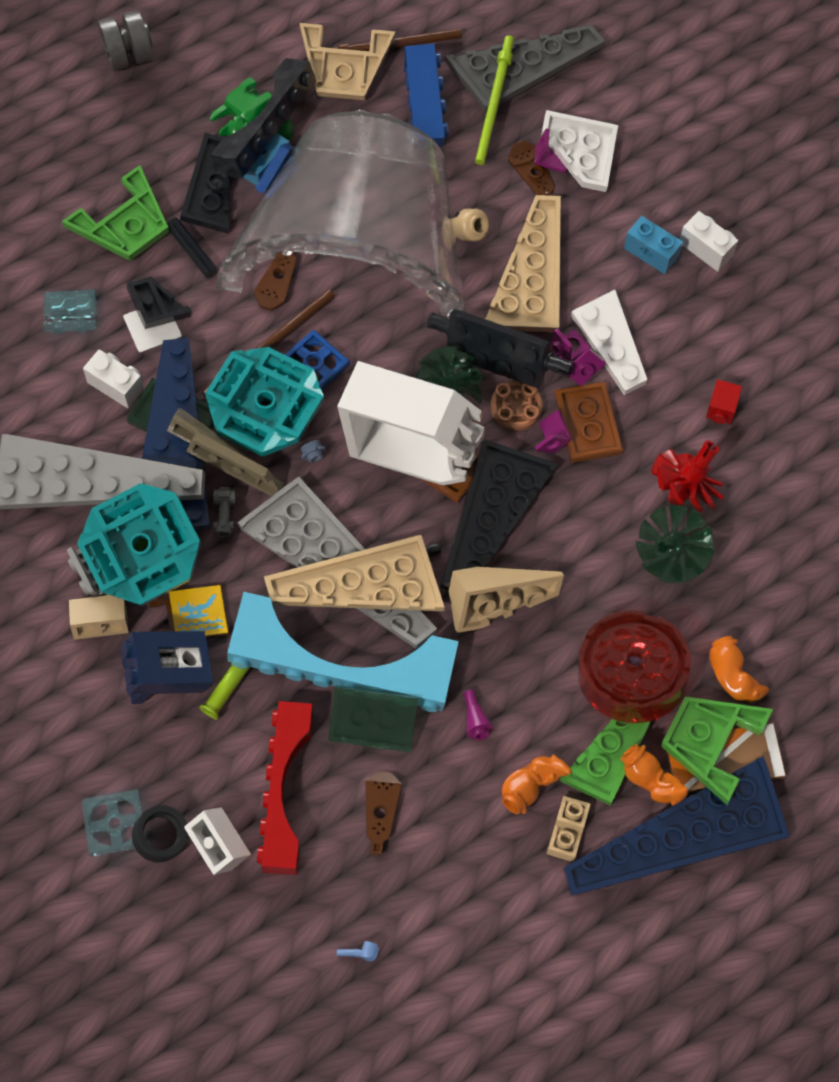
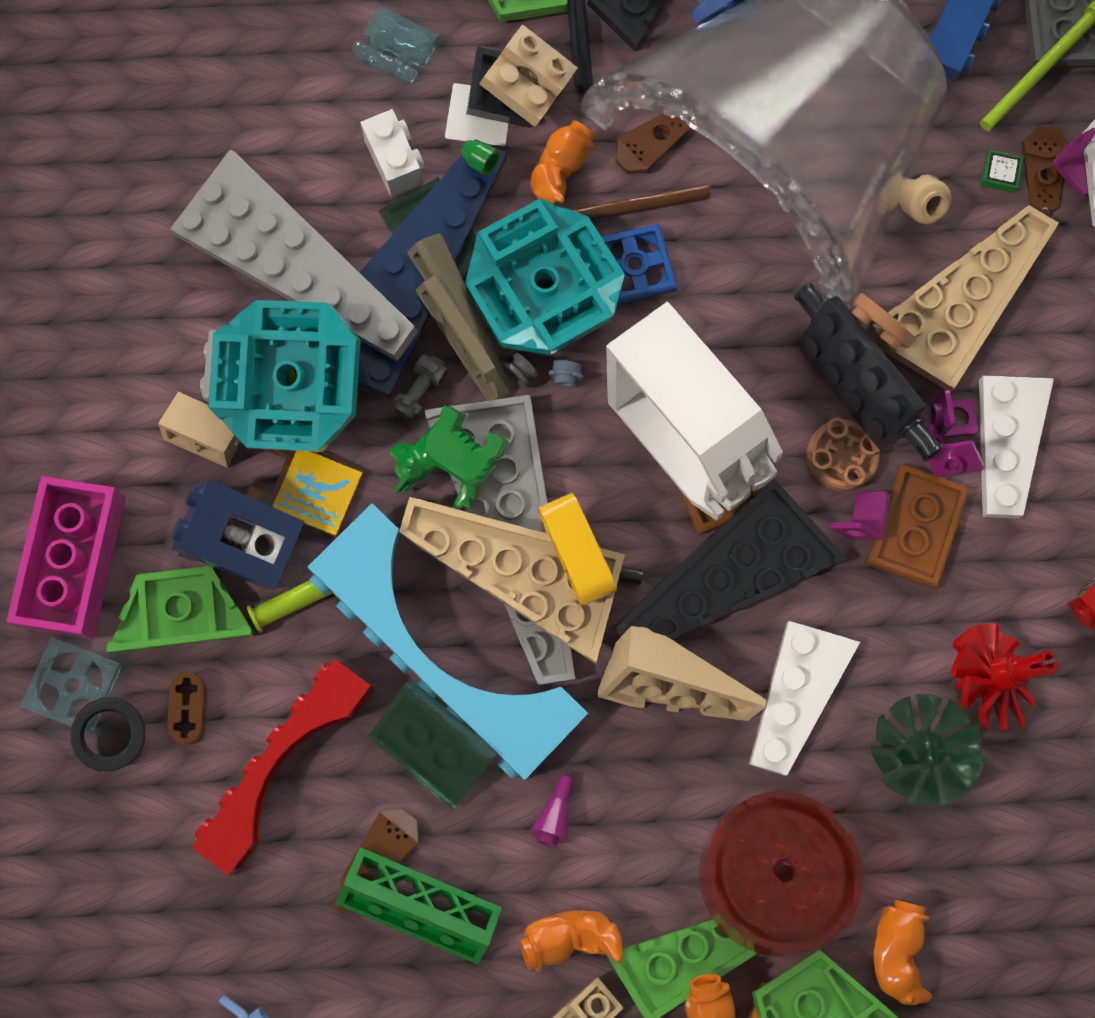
camera: 30 degrees right, 10 degrees up
(62, 742) = (67, 558): none -> dark pink brick
(156, 735) = (178, 611): none -> bright green wing
(174, 282) = (528, 75): none -> tan brick
(175, 347) = (480, 156): none -> green hose
(206, 788) = (177, 708): none -> reddish brown beam
(217, 840) = (166, 785): white brick -> none
(225, 321) = (561, 157): none -> orange animal
(272, 534) = (451, 451): none -> green animal
(282, 465) = (520, 370): none -> dark grey bush
(390, 545) = (577, 549): none -> yellow beam
(428, 823) = (411, 915): none -> green fence
(451, 370) = (783, 375): clear green piece -> none
(500, 311) = (893, 332): none -> nougat tile
(506, 184) = (1001, 171): none -> tile
(577, 556) = (800, 687): none -> white wing

